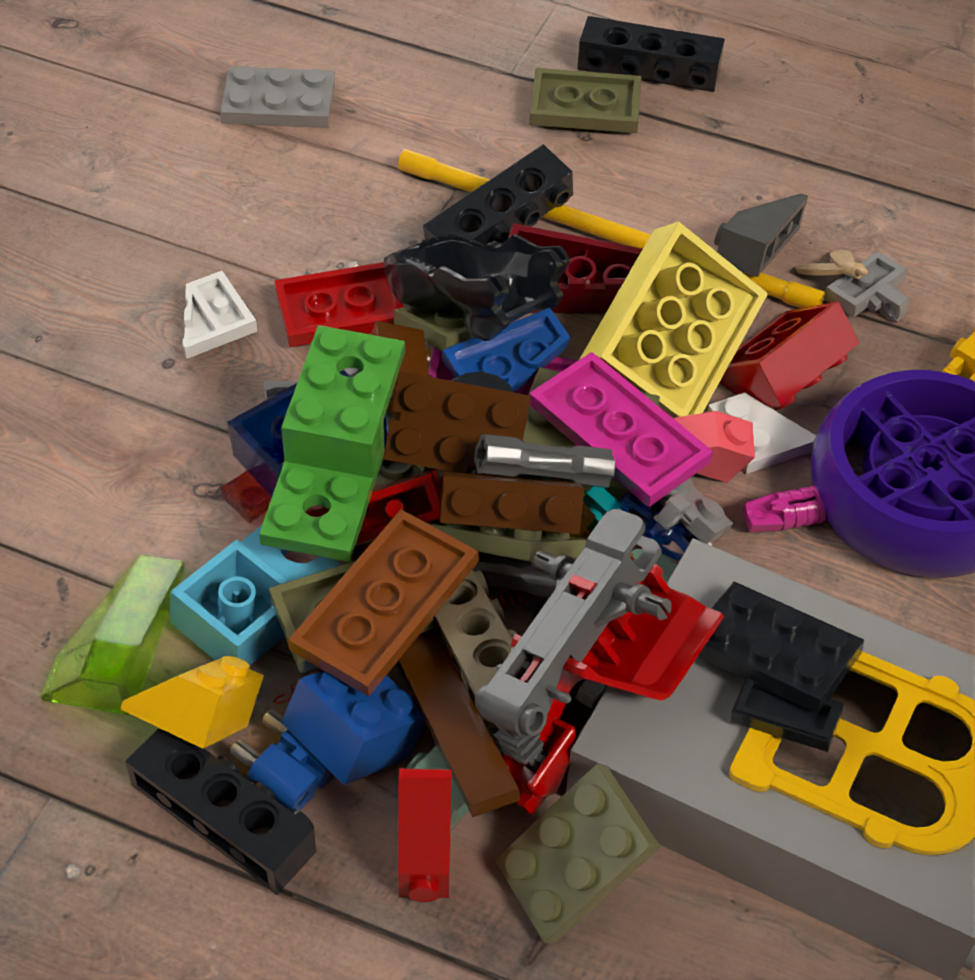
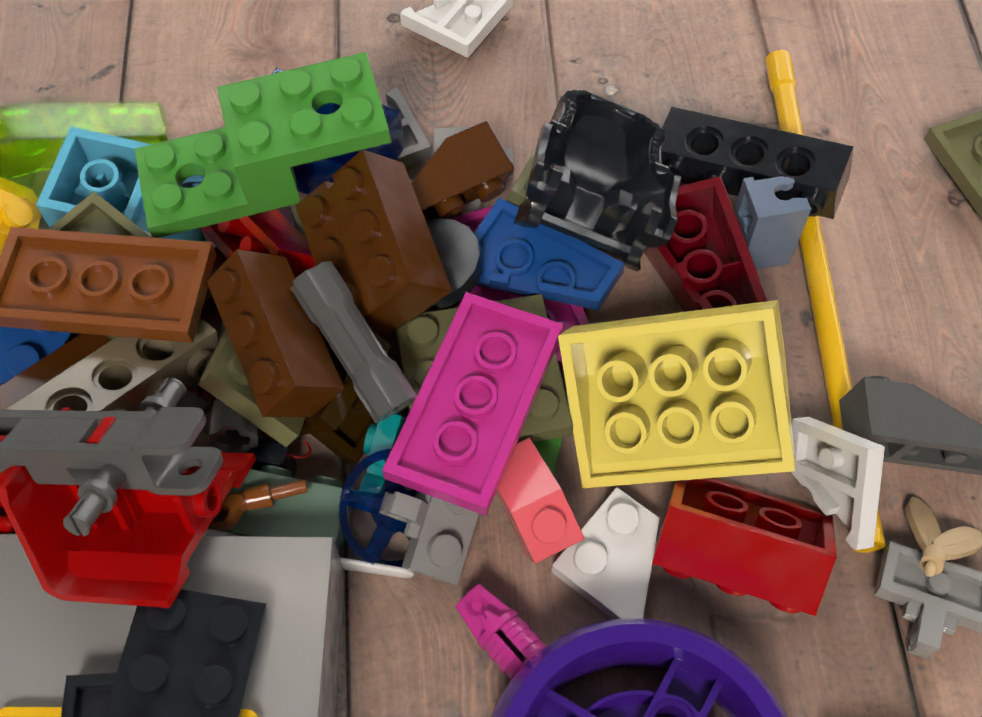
camera: 65 degrees right, 10 degrees up
(335, 299) = (523, 87): red plate -> none
(562, 213) = (768, 223): none -> sand blue hinge
(783, 278) = (841, 475): none -> white wing

